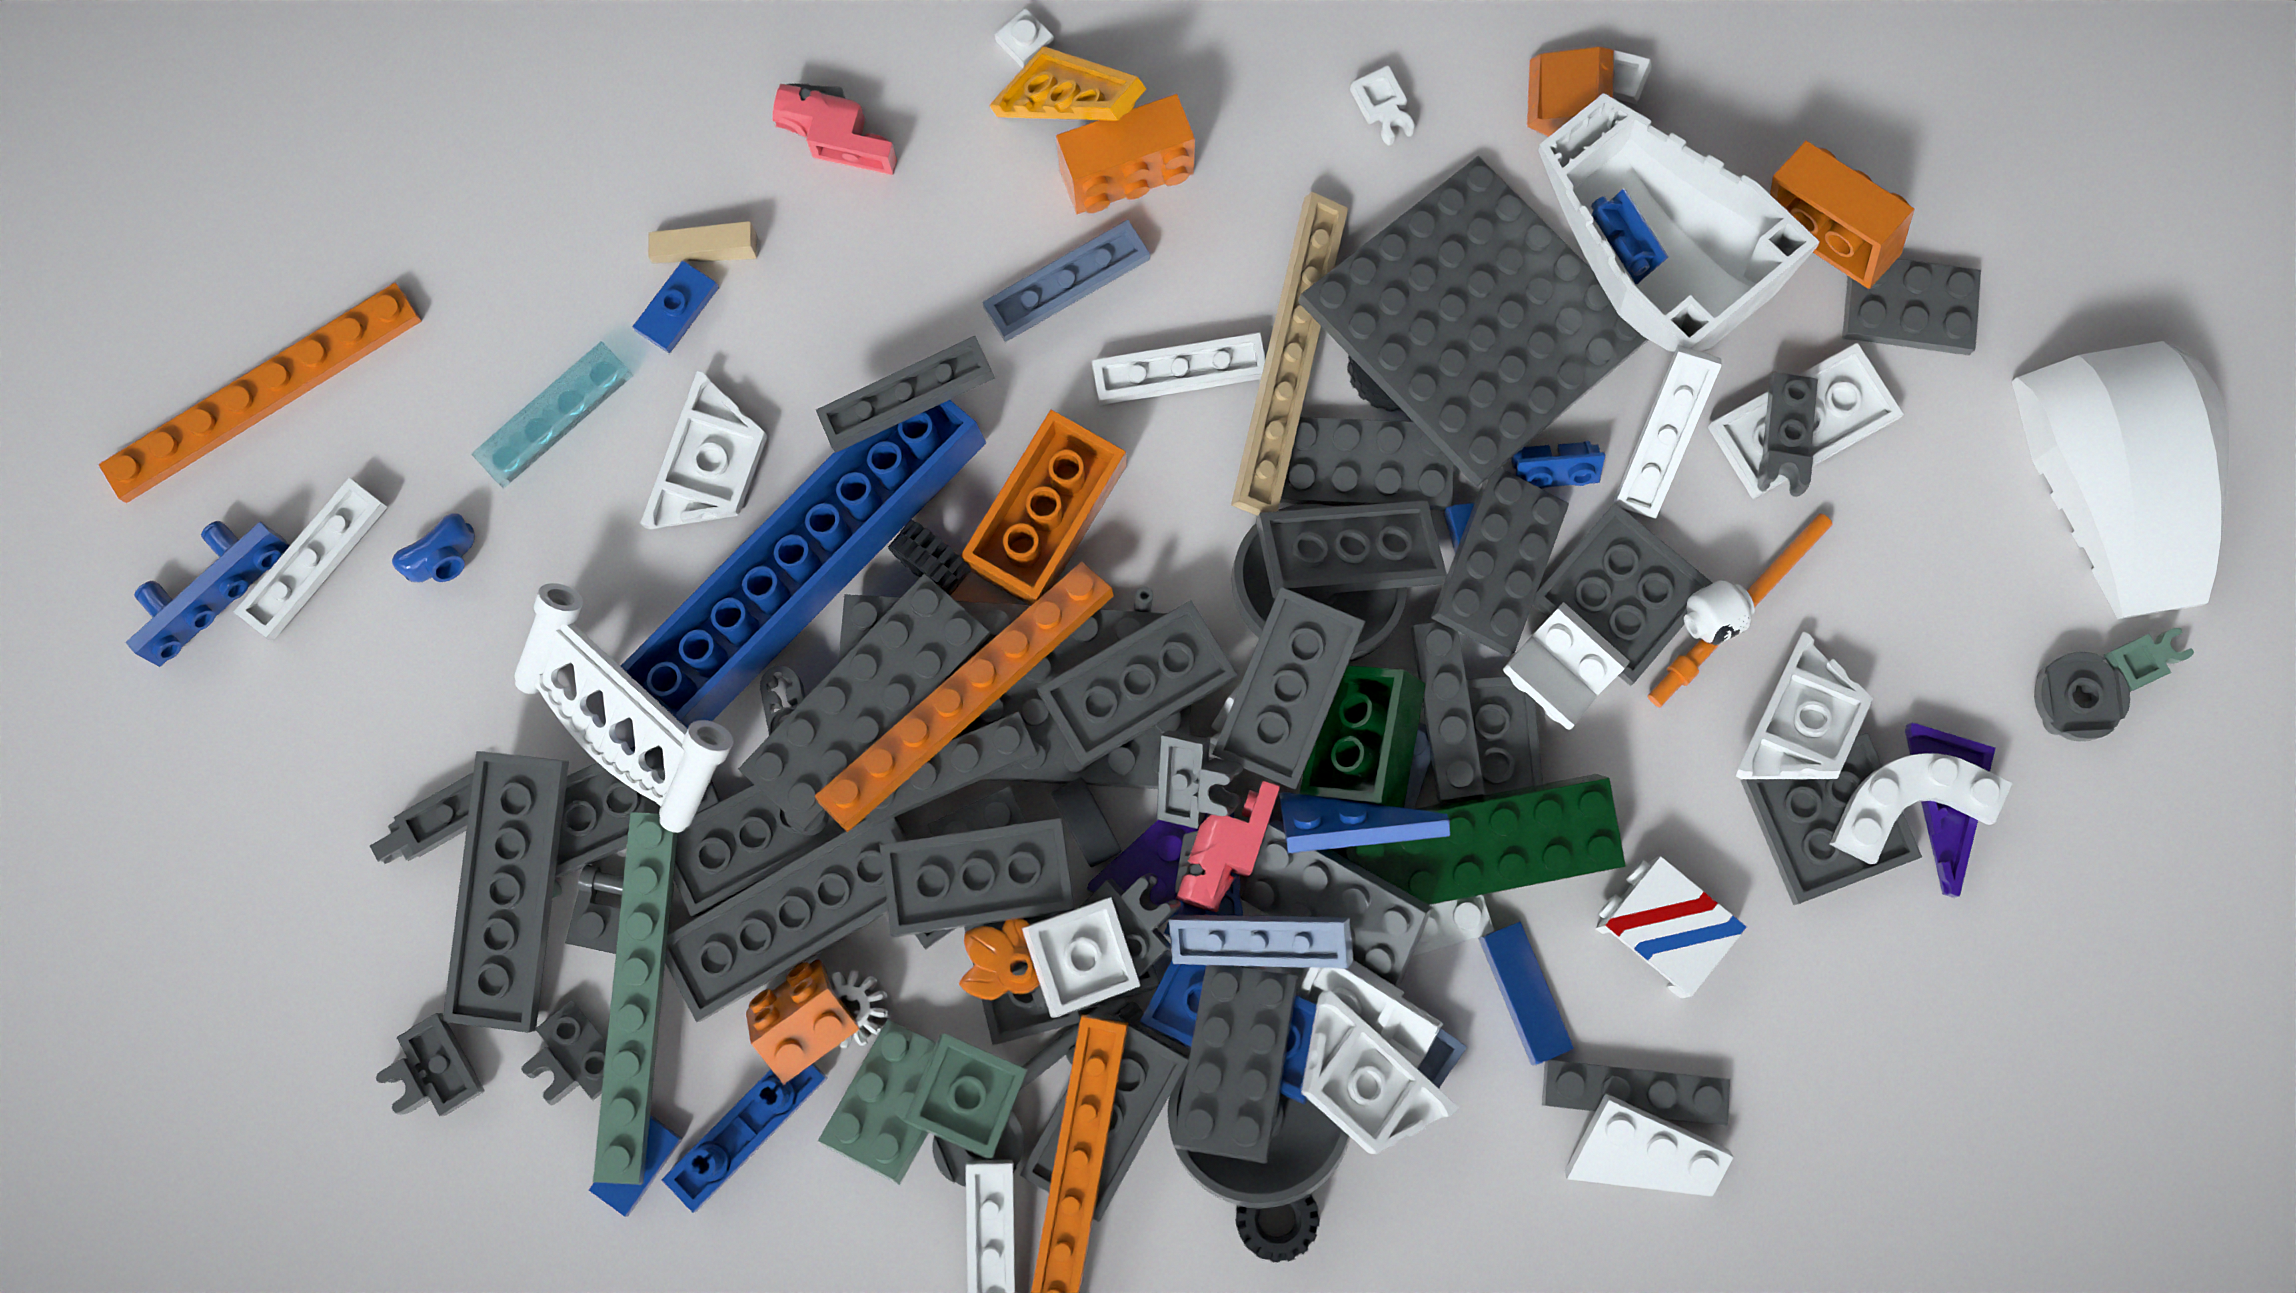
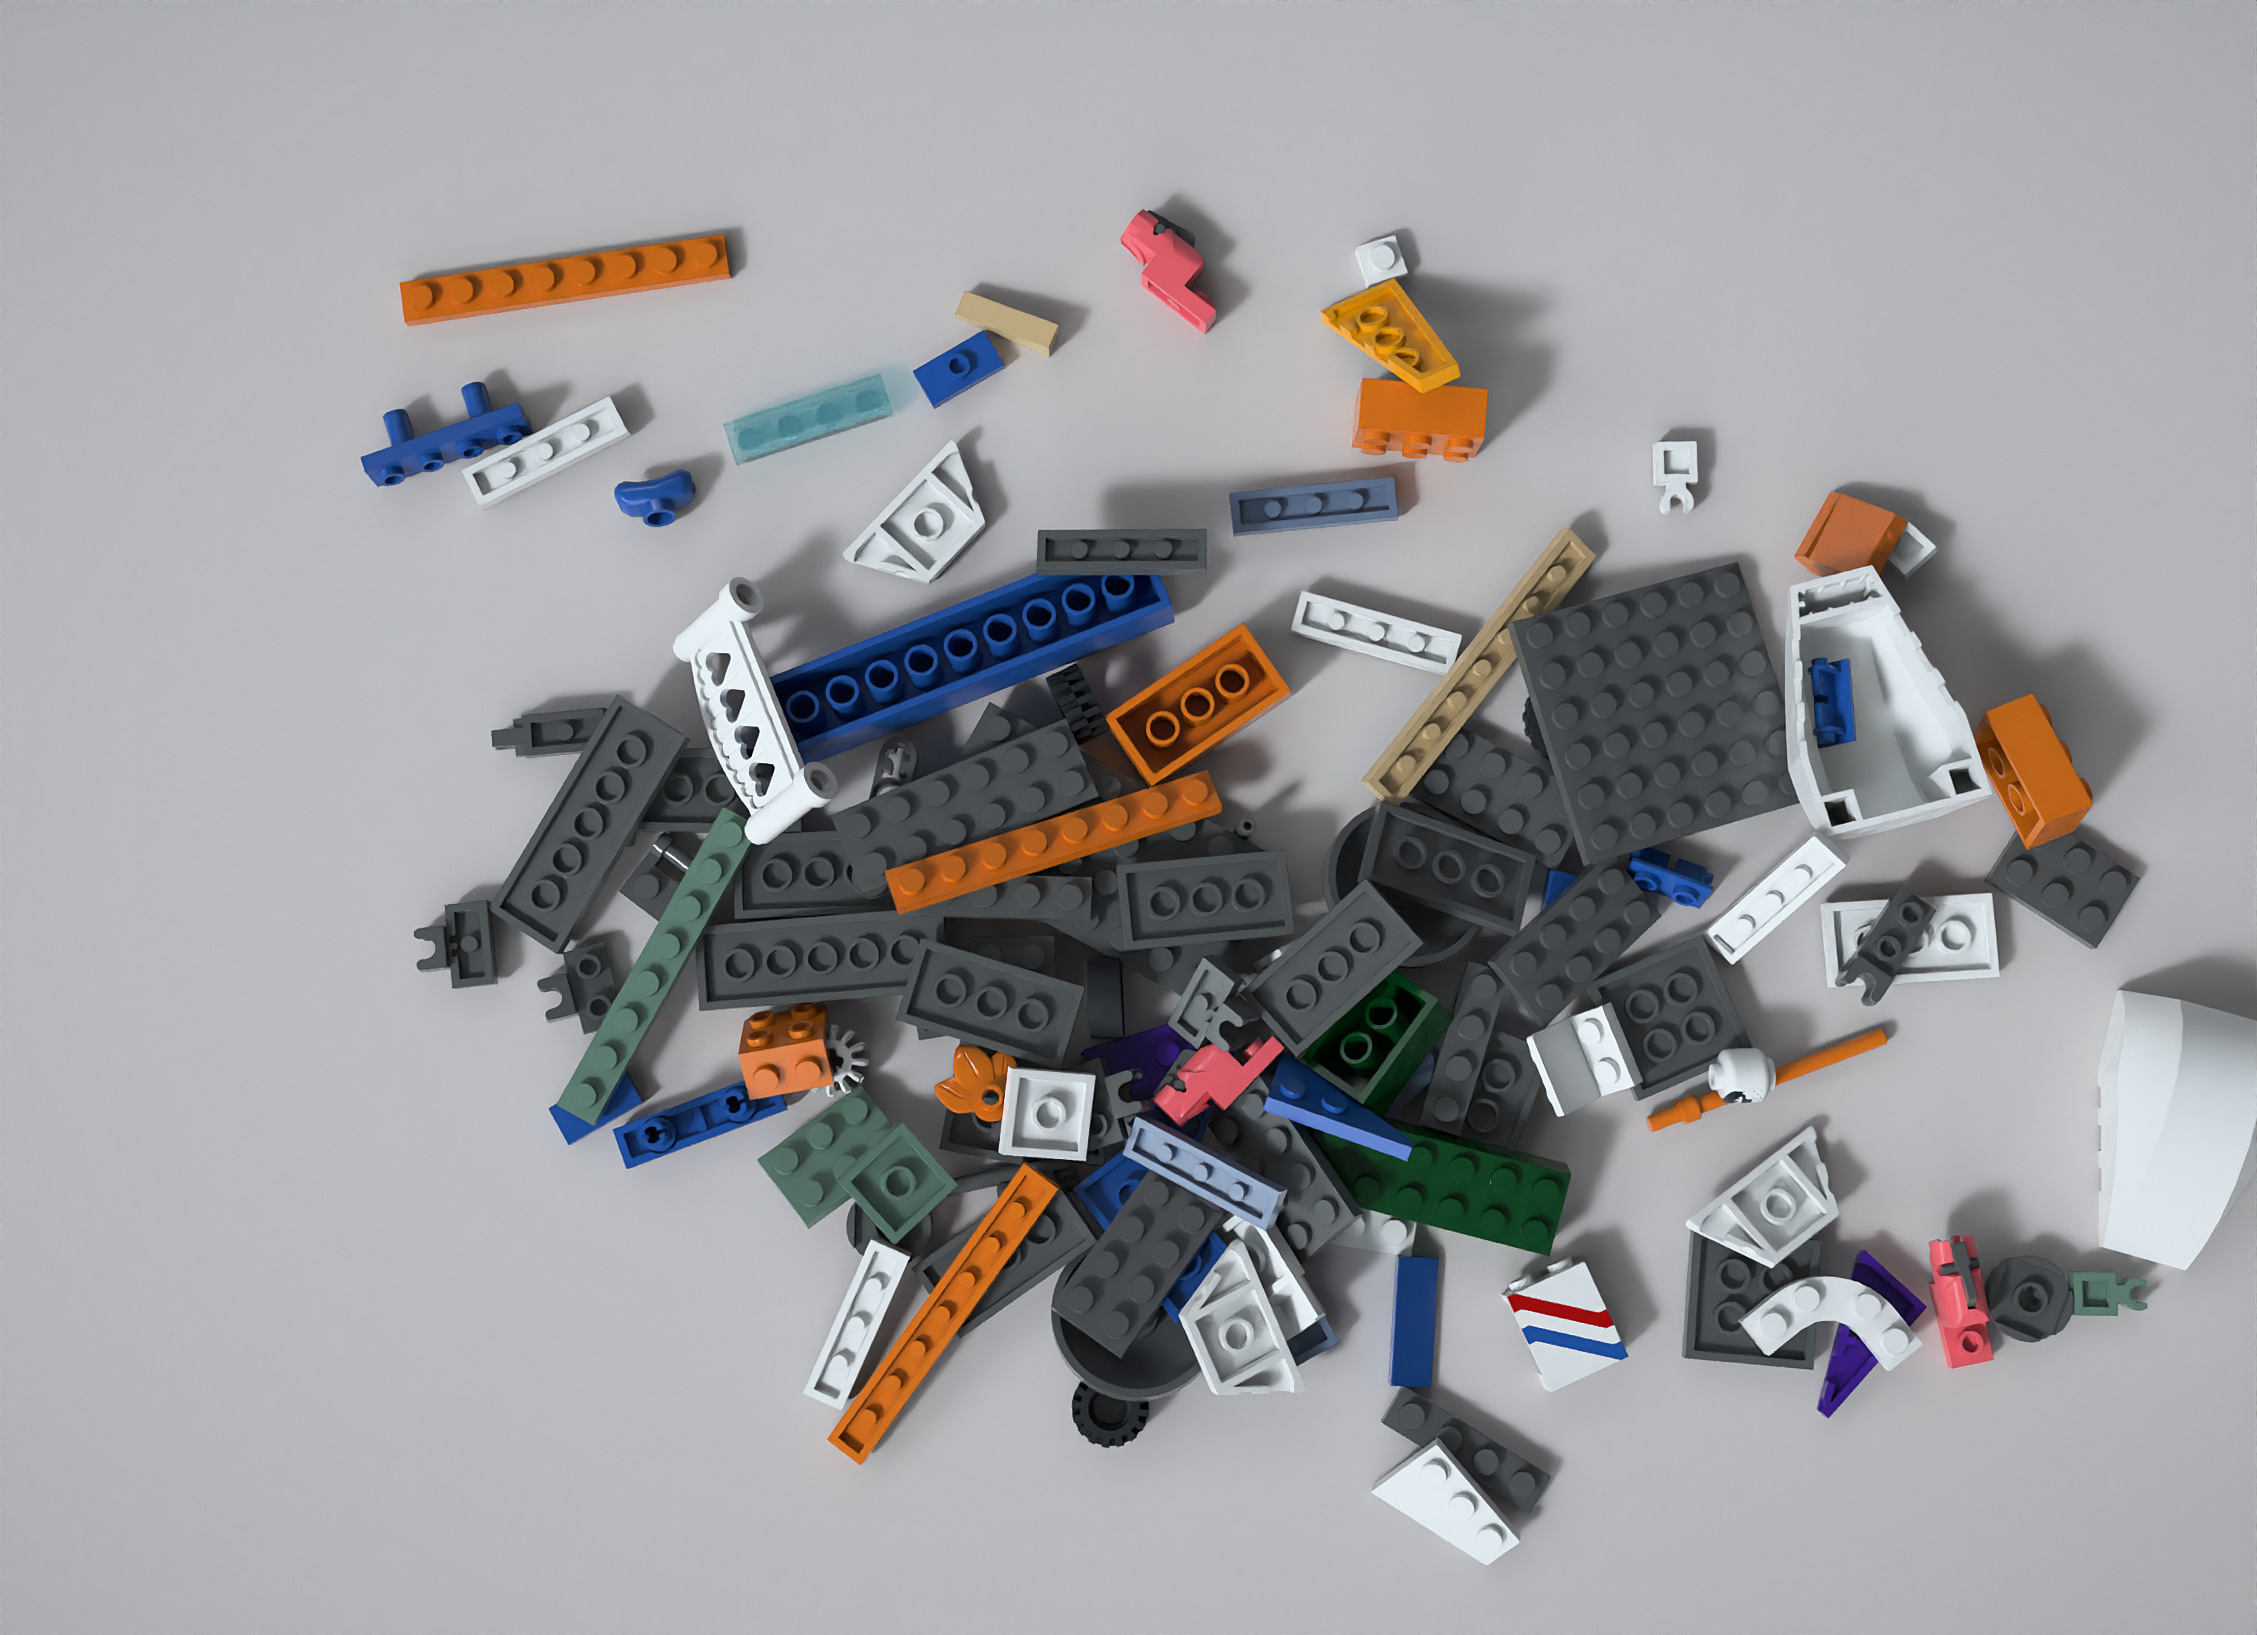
camera: 25 degrees right, 5 degrees up
(2022, 727) = (1960, 1301): none -> coral plate

